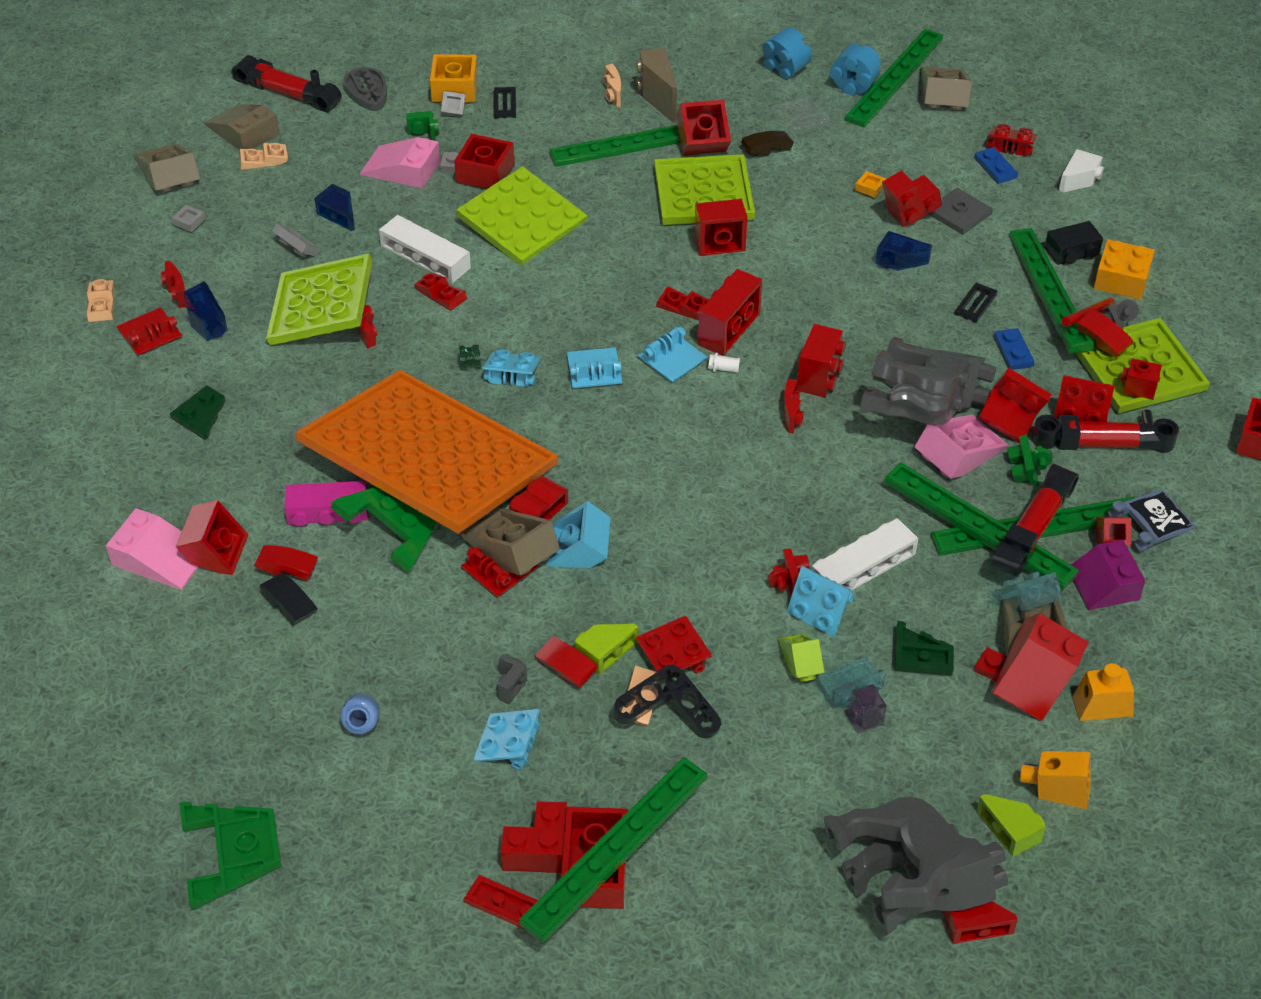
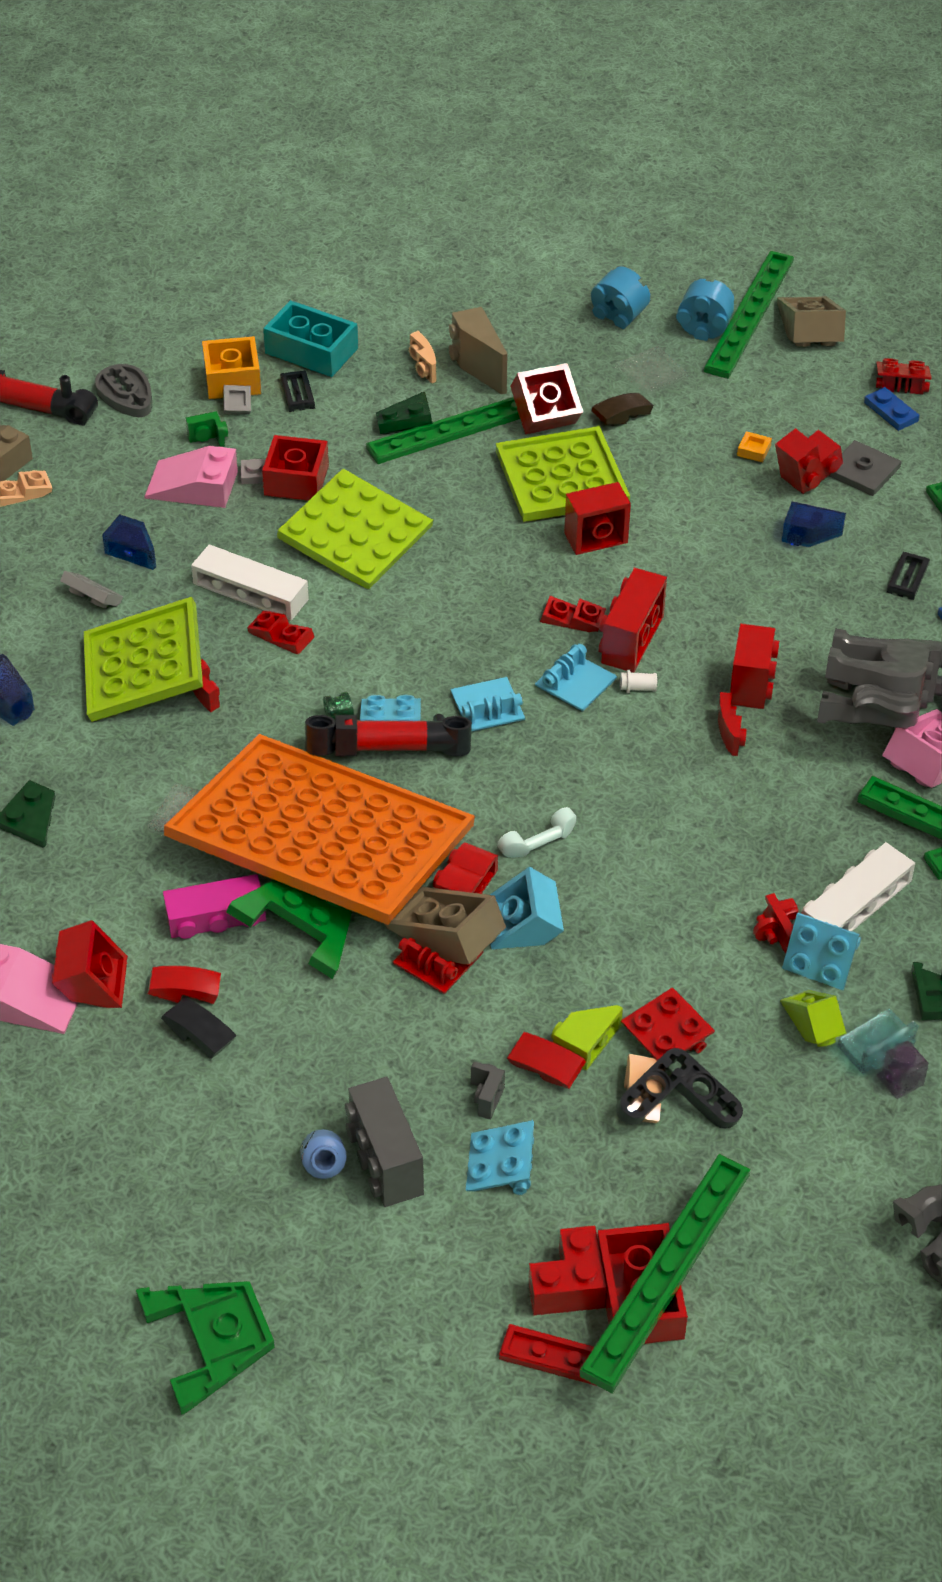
camera: 10 degrees left, 0 degrees up
(410, 710) = (384, 1142): none -> dark grey brick
(471, 378) = (350, 735): none -> black piece
(524, 61) = (311, 338): none -> teal brick
(585, 484) = (514, 846): none -> light aqua bar
(587, 129) = (405, 414): none -> dark green wing

